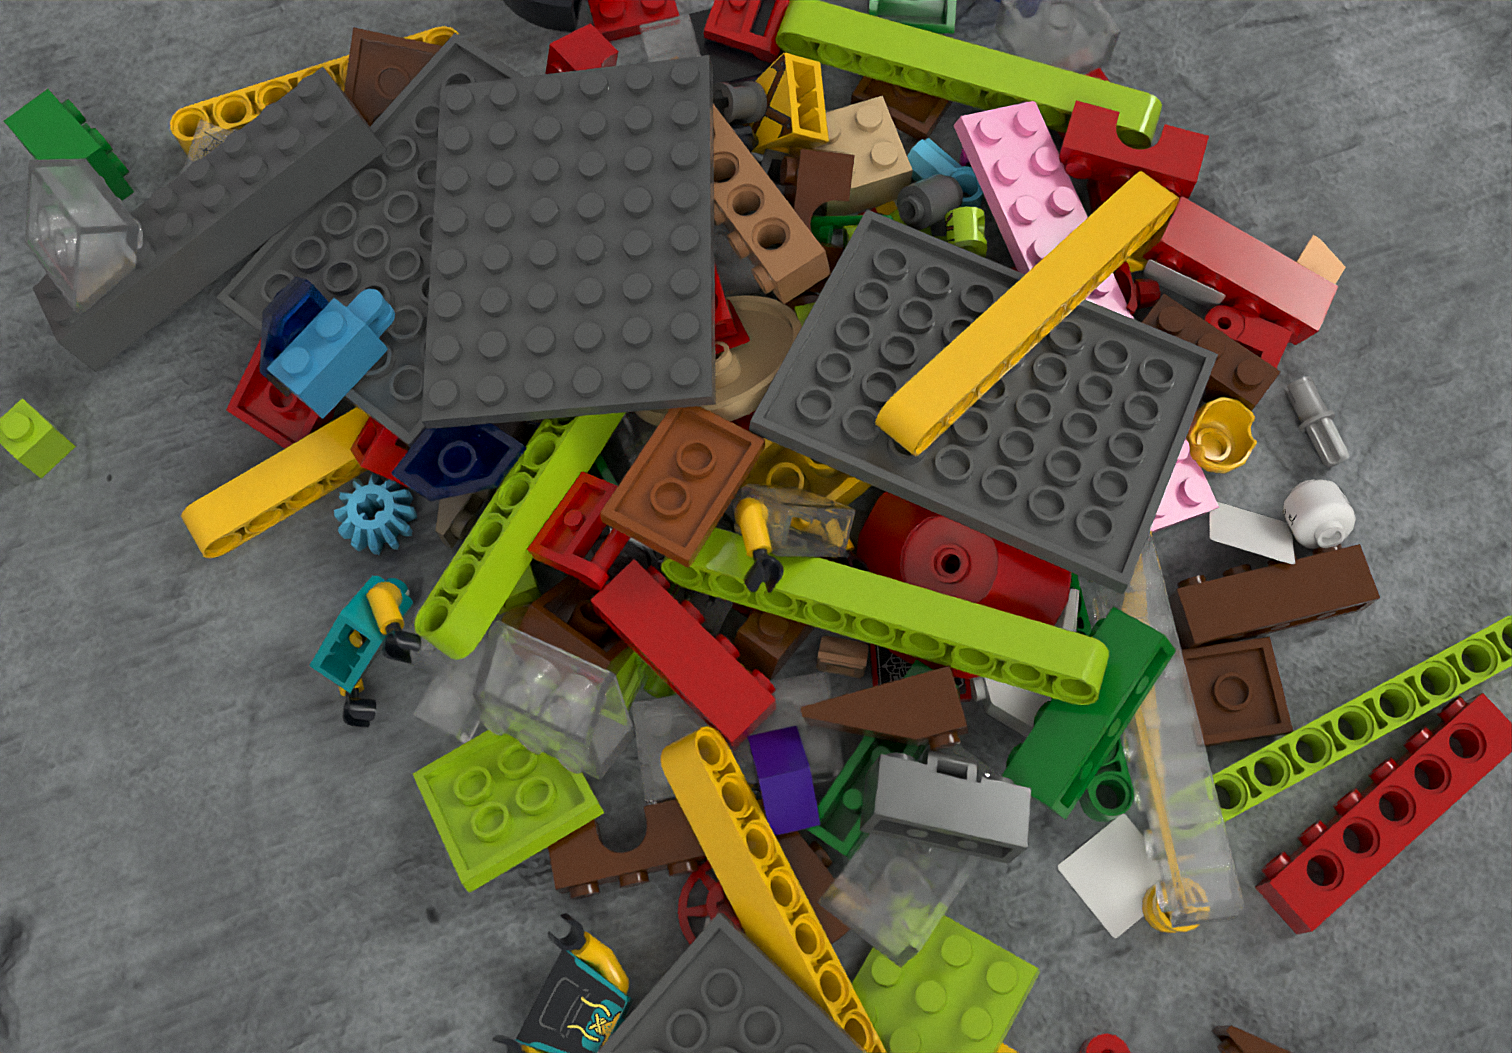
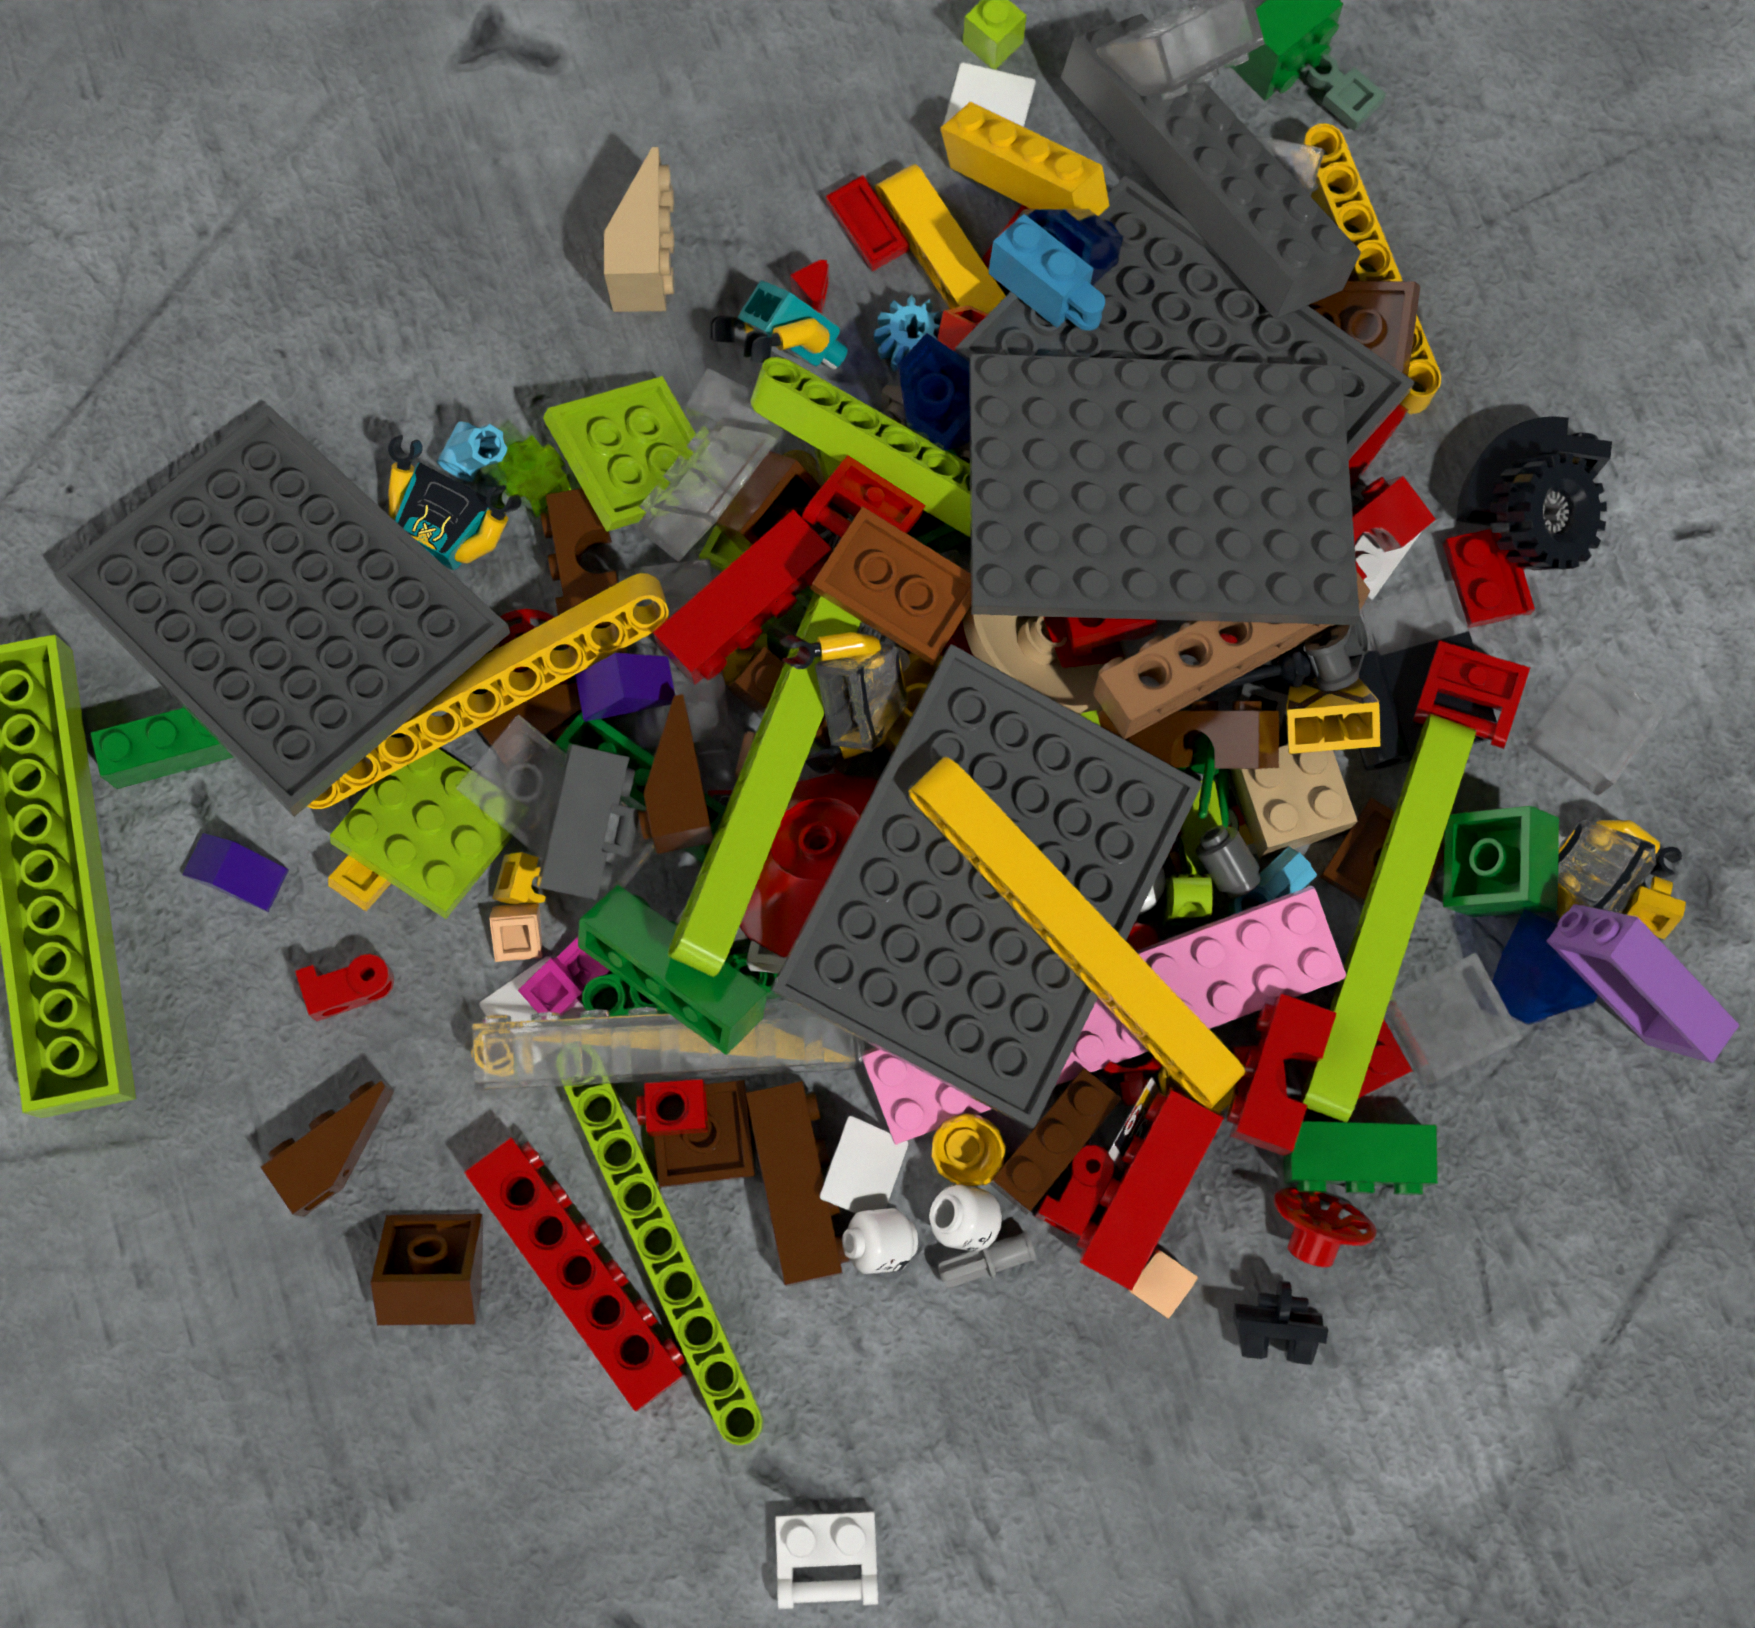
camera: 90 degrees right, 5 degrees up
(115, 450) = (993, 90): none -> white sticker
(135, 109) = (1348, 96): none -> sand green plate
(196, 395) = (1022, 163): none -> yellow brick
(242, 567) = (867, 223): none -> red tile
(277, 799) = (641, 241): none -> tan slope
(315, 615) = (812, 284): none -> red slope
(499, 980) = (471, 449): none -> medium azure piece
(545, 913) = (532, 473): none -> clear neon green brick
(985, 900) = (516, 879): none -> yellow tile
(1035, 900) = (516, 932): none -> light nougat slope
(1083, 844) = (562, 980): none -> dark pink slope
(1181, 78) = (1363, 1157): none -> green brick
(1232, 694) = (693, 1118): none -> red brick
(1258, 136) = (1320, 1231): none -> red wheel
(1287, 436) = (965, 1218): none -> white head
(1340, 171) = (1283, 1318): none -> black hips
(1407, 967) = (428, 1270): none -> reddish brown slope

